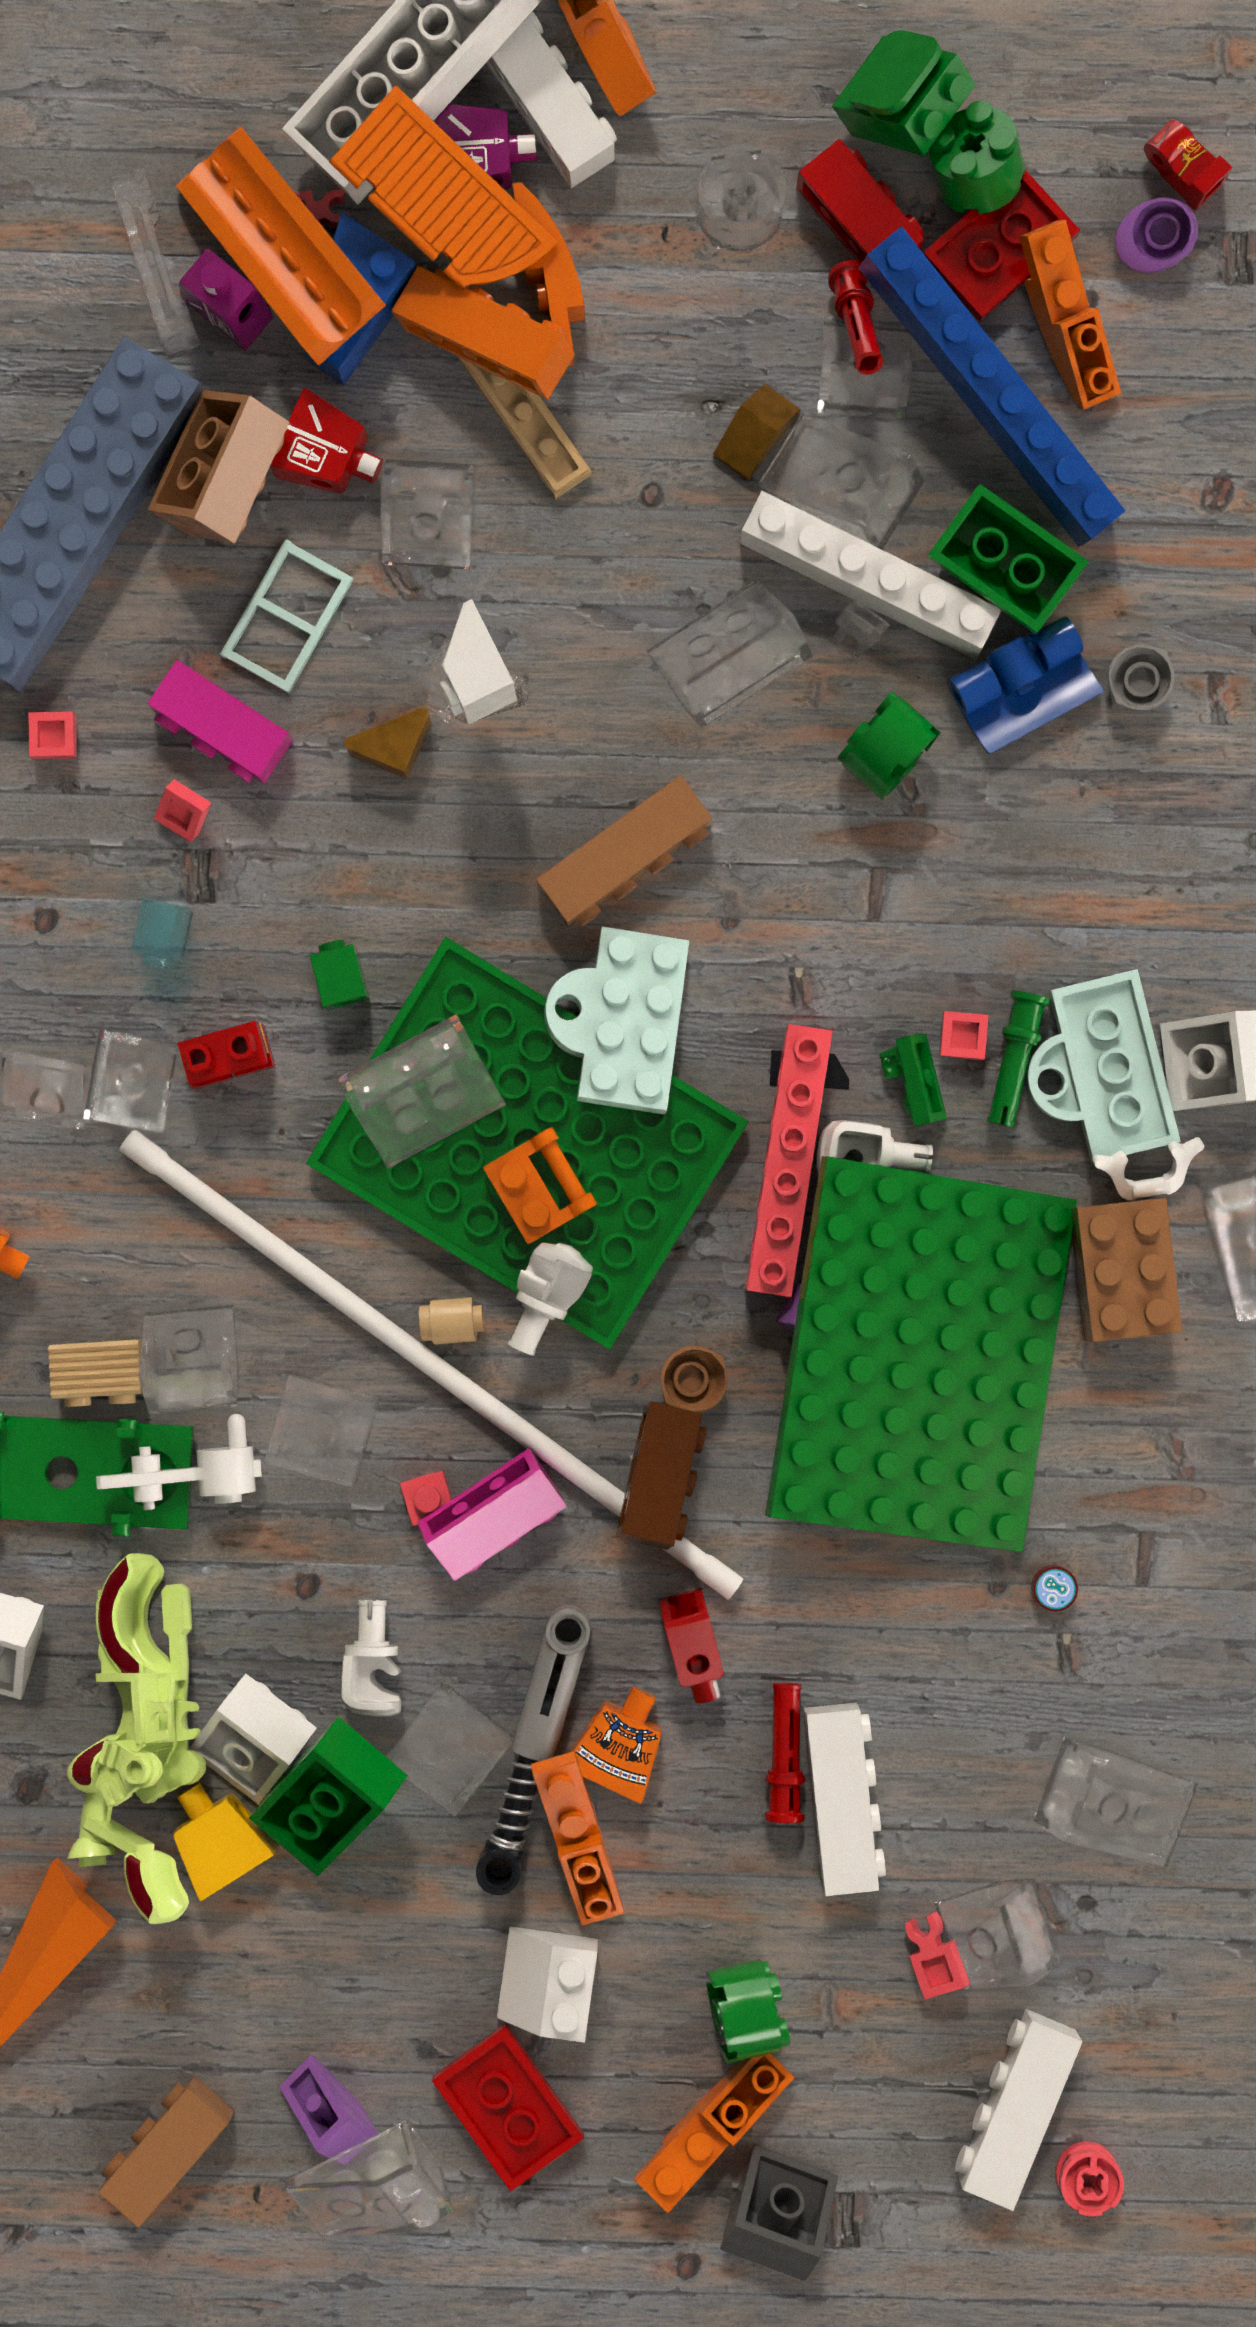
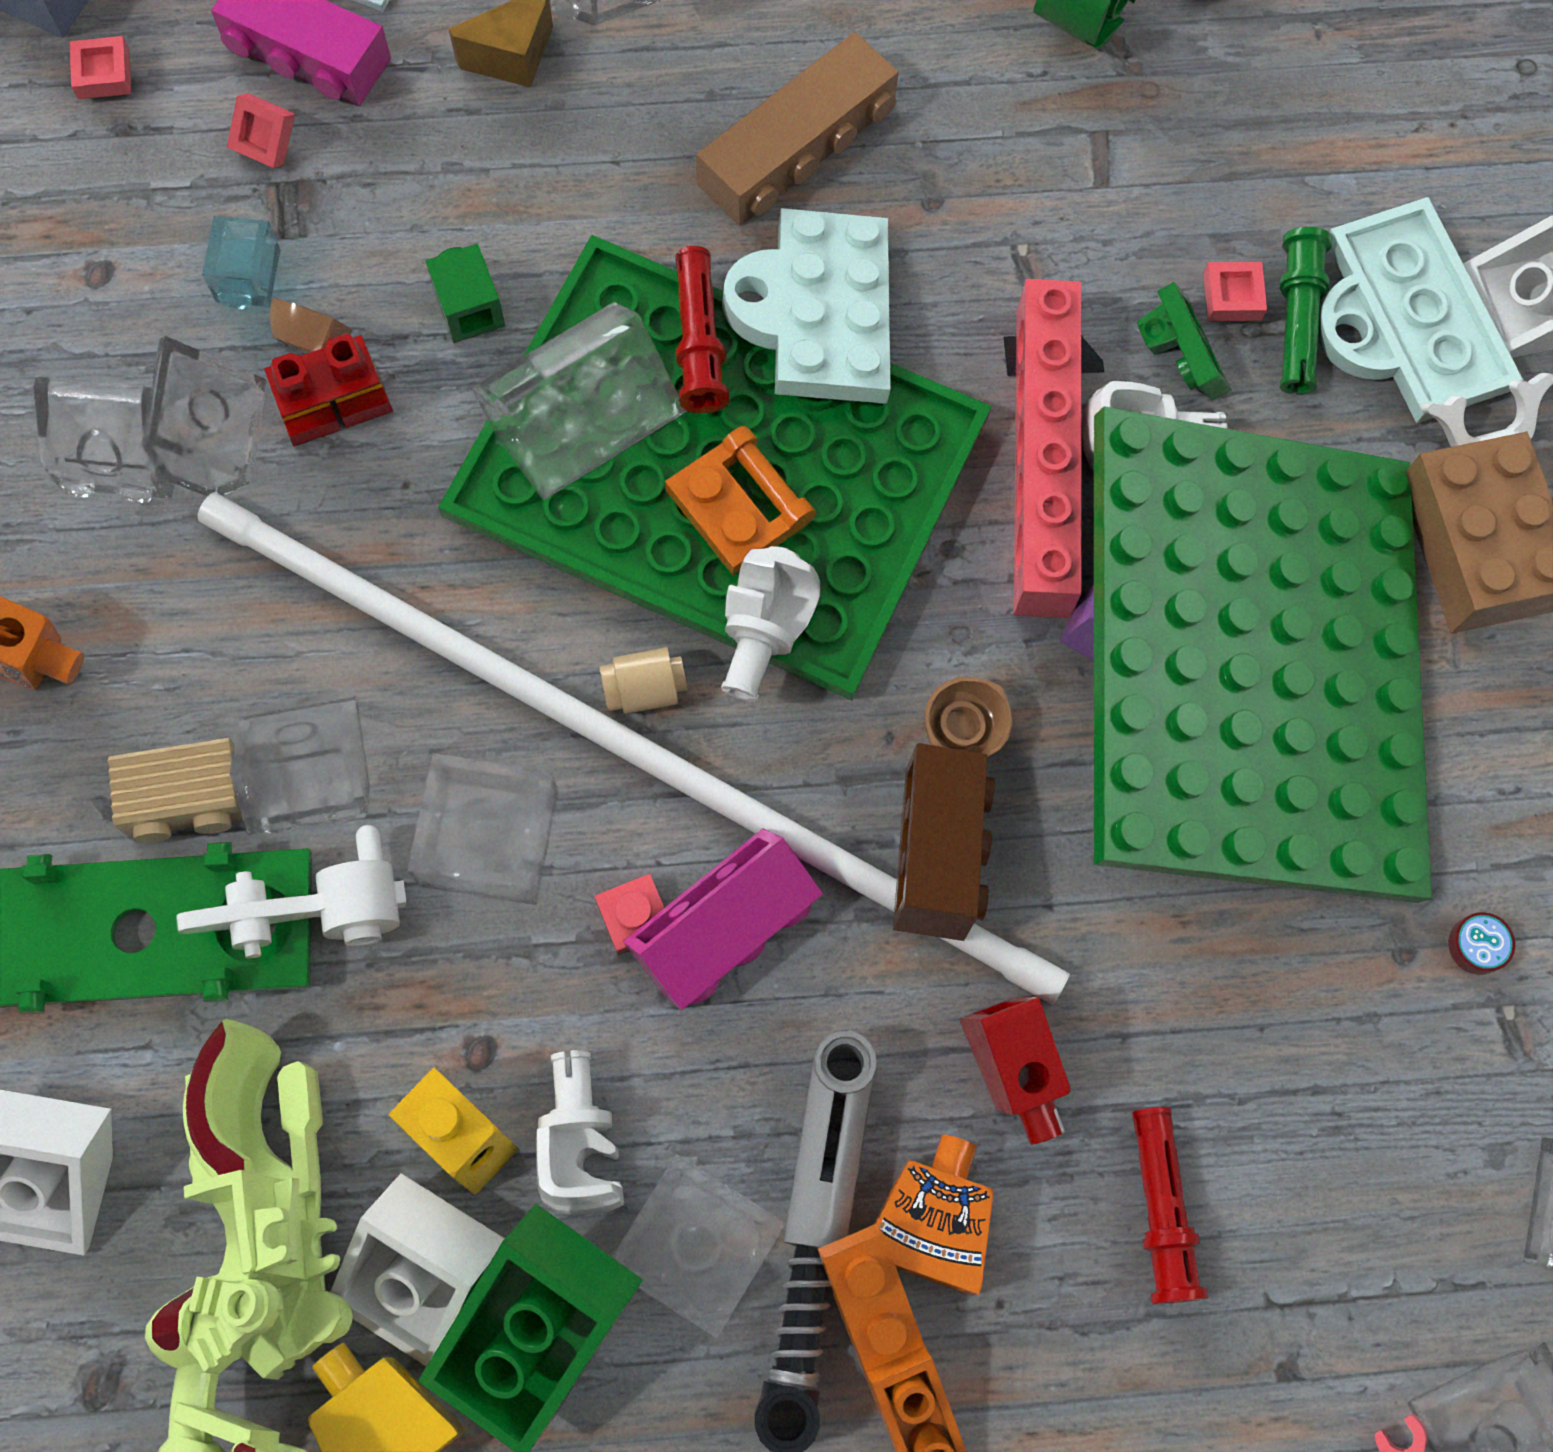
camera: 10 degrees left, 15 degrees down
(212, 1000) = (302, 326): none -> medium nougat hat
(281, 1644) = (453, 1131): none -> yellow torso
(521, 1059) = (700, 350): none -> red pin
(842, 1799) = (1257, 1264): white brick -> none

